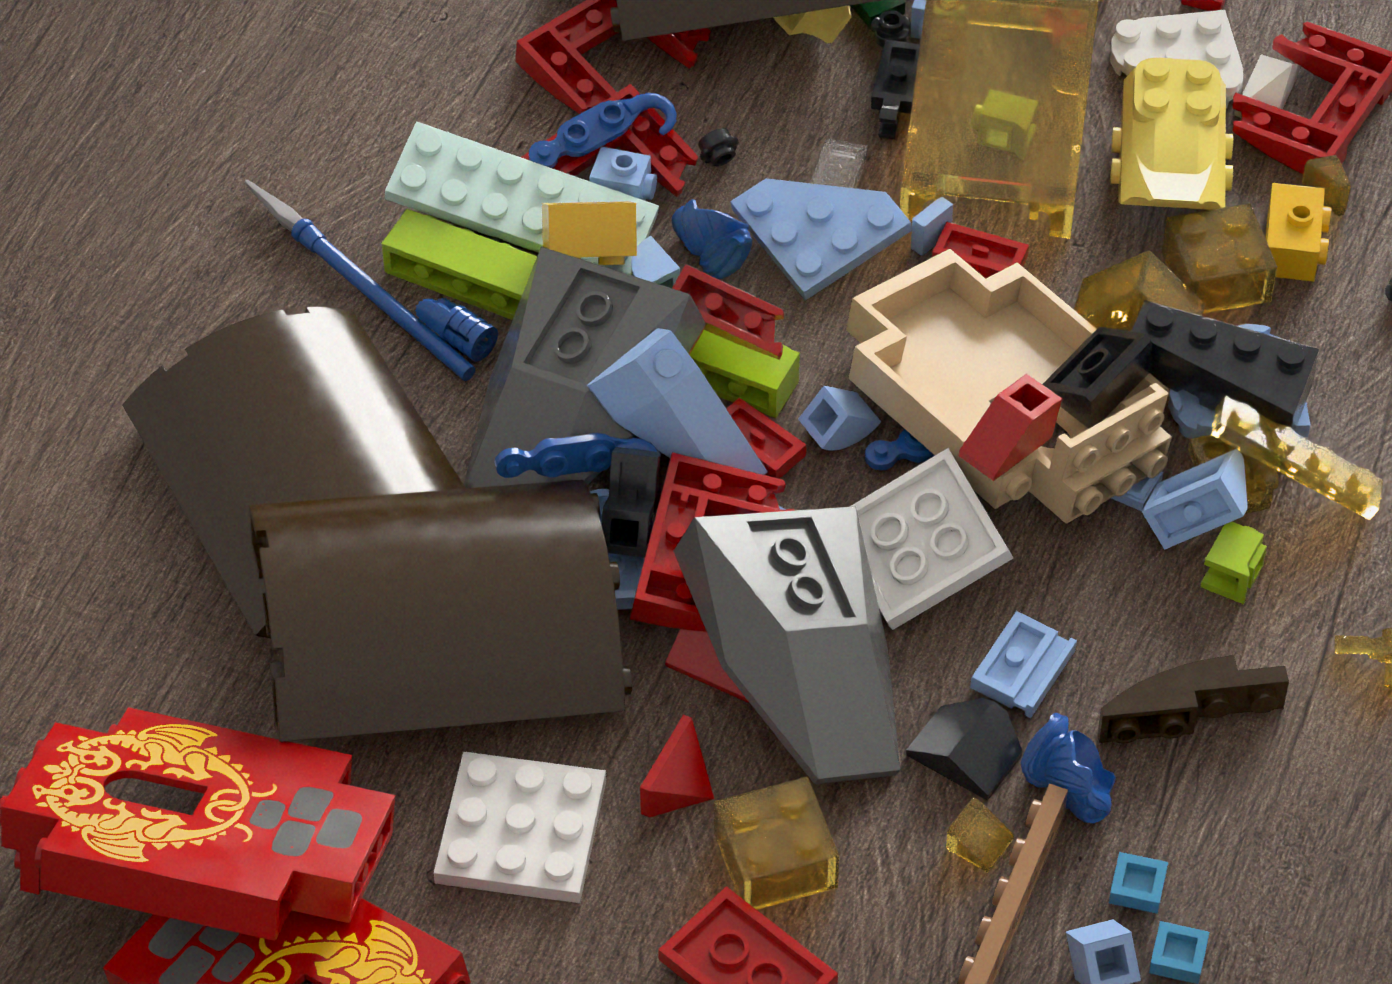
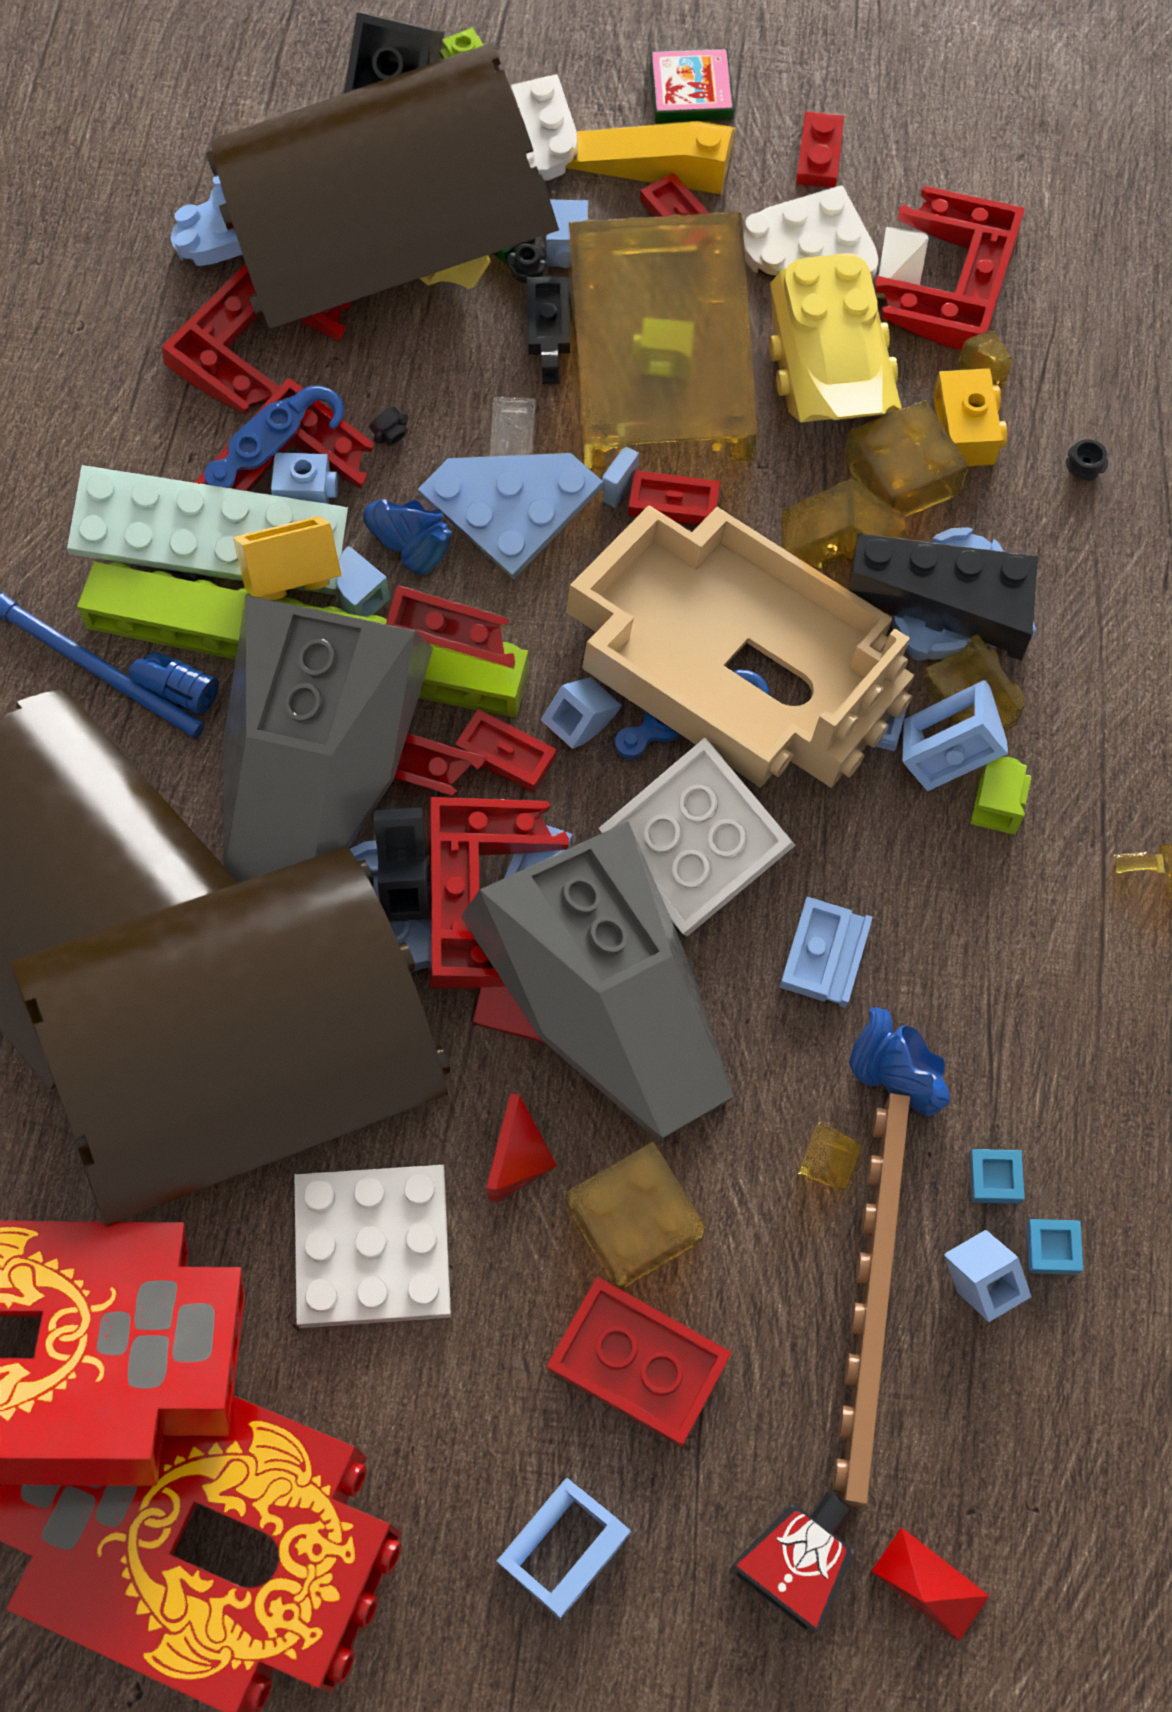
camera: 15 degrees left, 15 degrees up
(565, 455) = (316, 832): blue piece -> none
(670, 403) = (419, 749): light blue wedge -> none
(969, 745) = (793, 1052): black slope -> none
(1012, 427) = (769, 712): red slope -> none
(1101, 373) = (827, 618): black slope -> none
(1173, 699) = (984, 963): dark brown slope -> none
(1297, 457) = (1037, 673): clear yellow plate -> none

